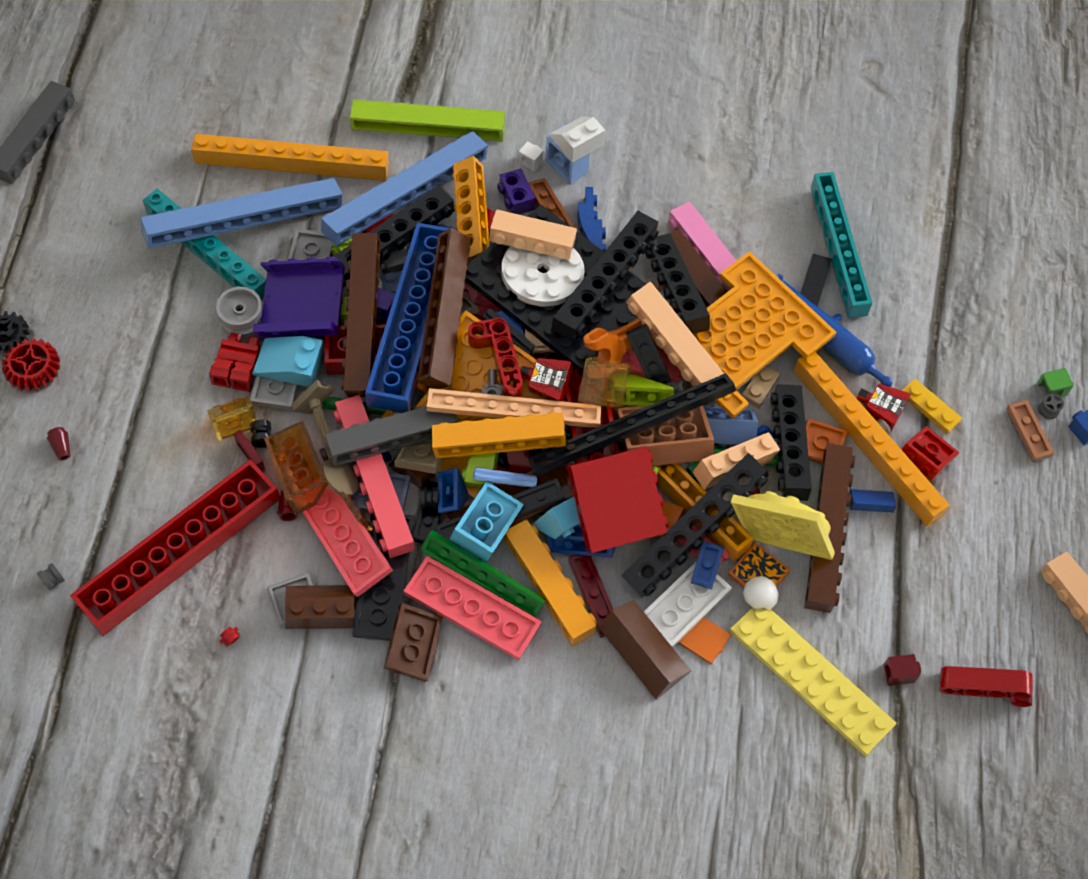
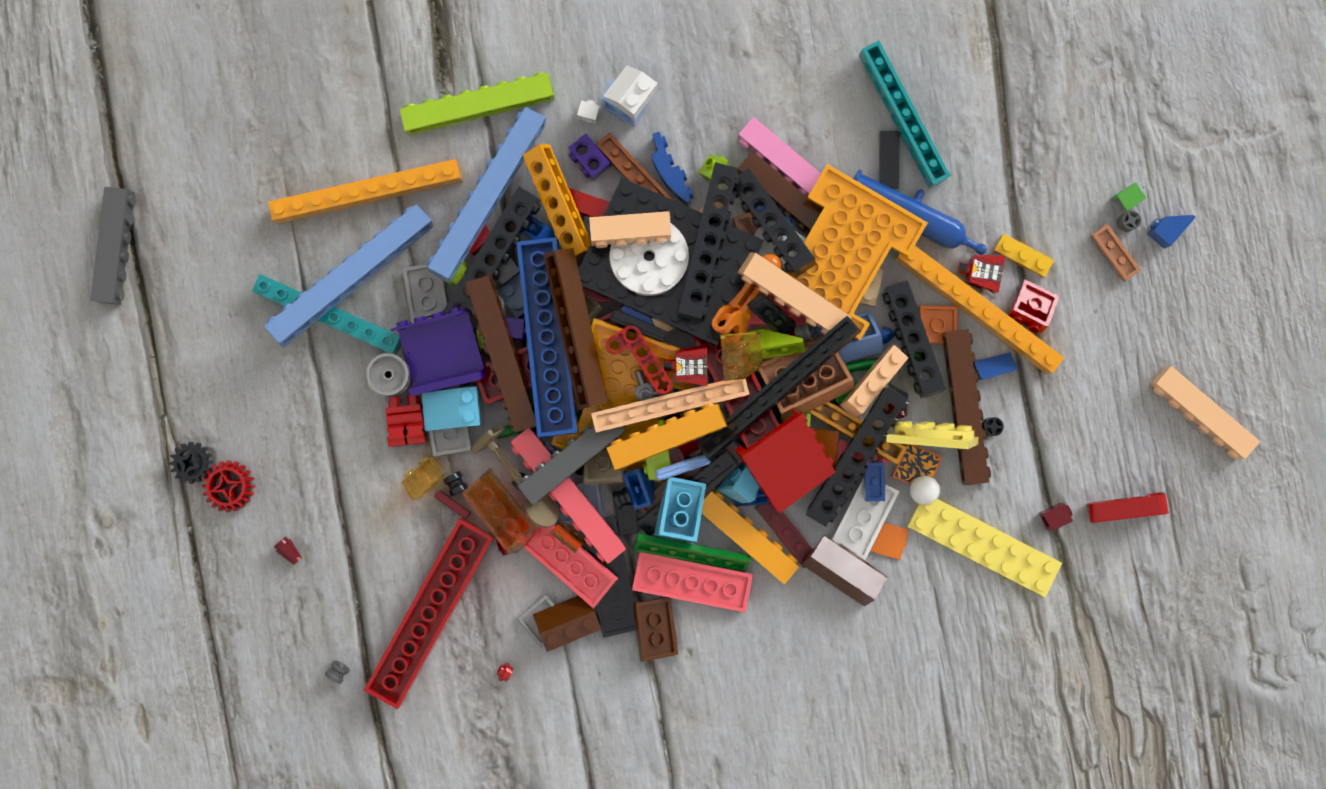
camera: 15 degrees left, 25 degrees up
(855, 551) = (994, 424): none -> black wheel

